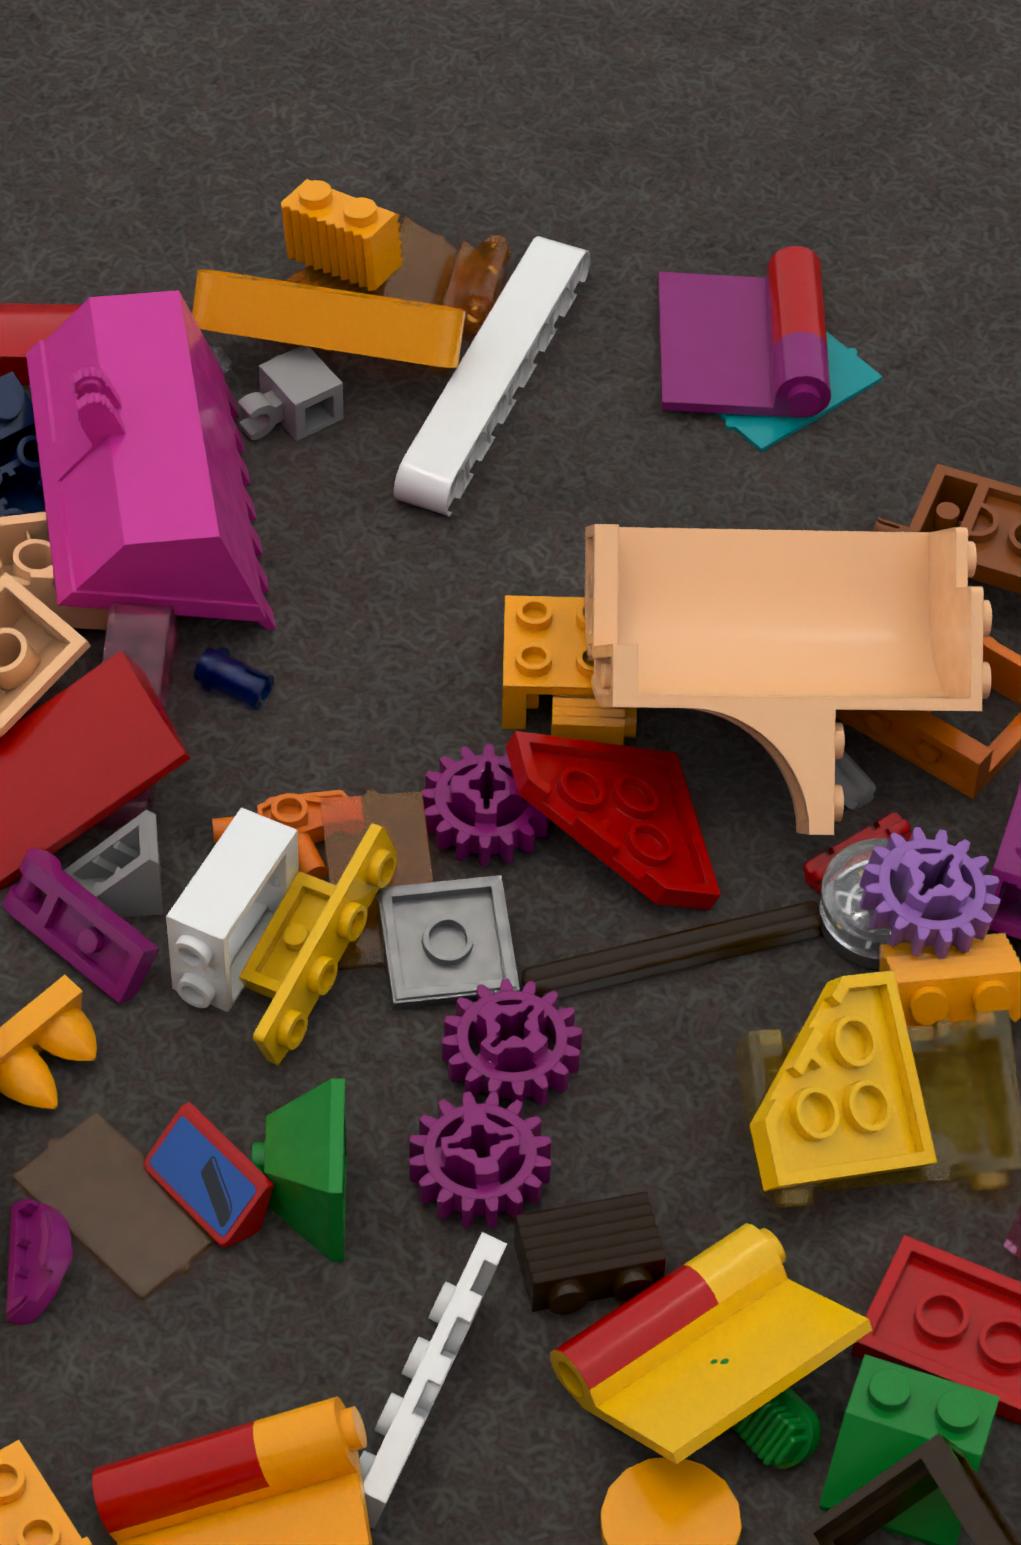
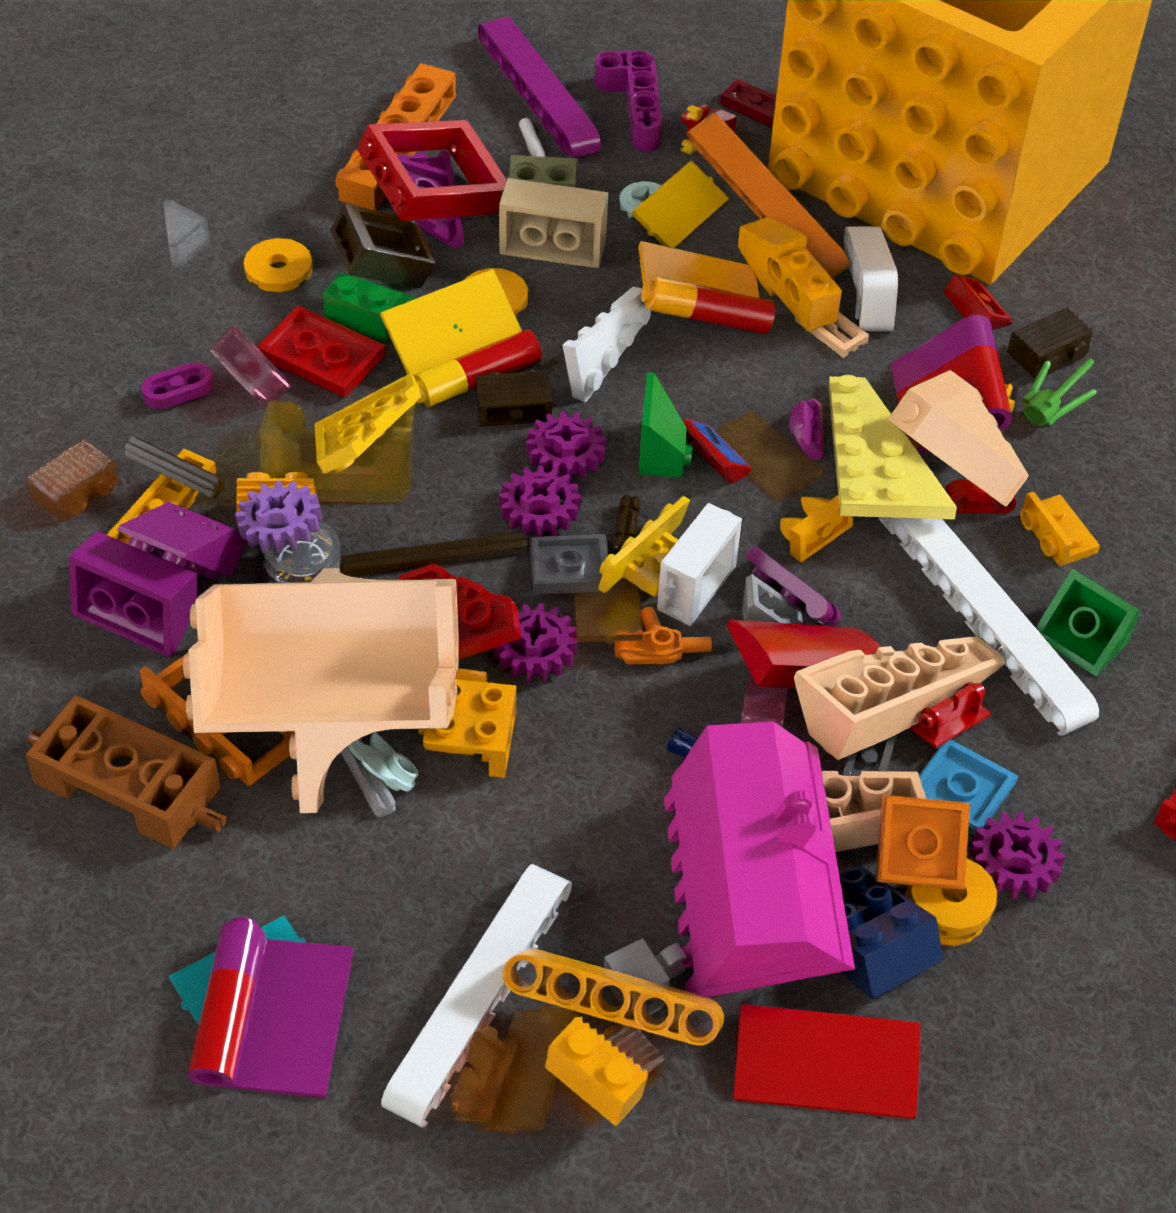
camera: 175 degrees left, 0 degrees up
(360, 1029) = (626, 521): none -> dark brown axle

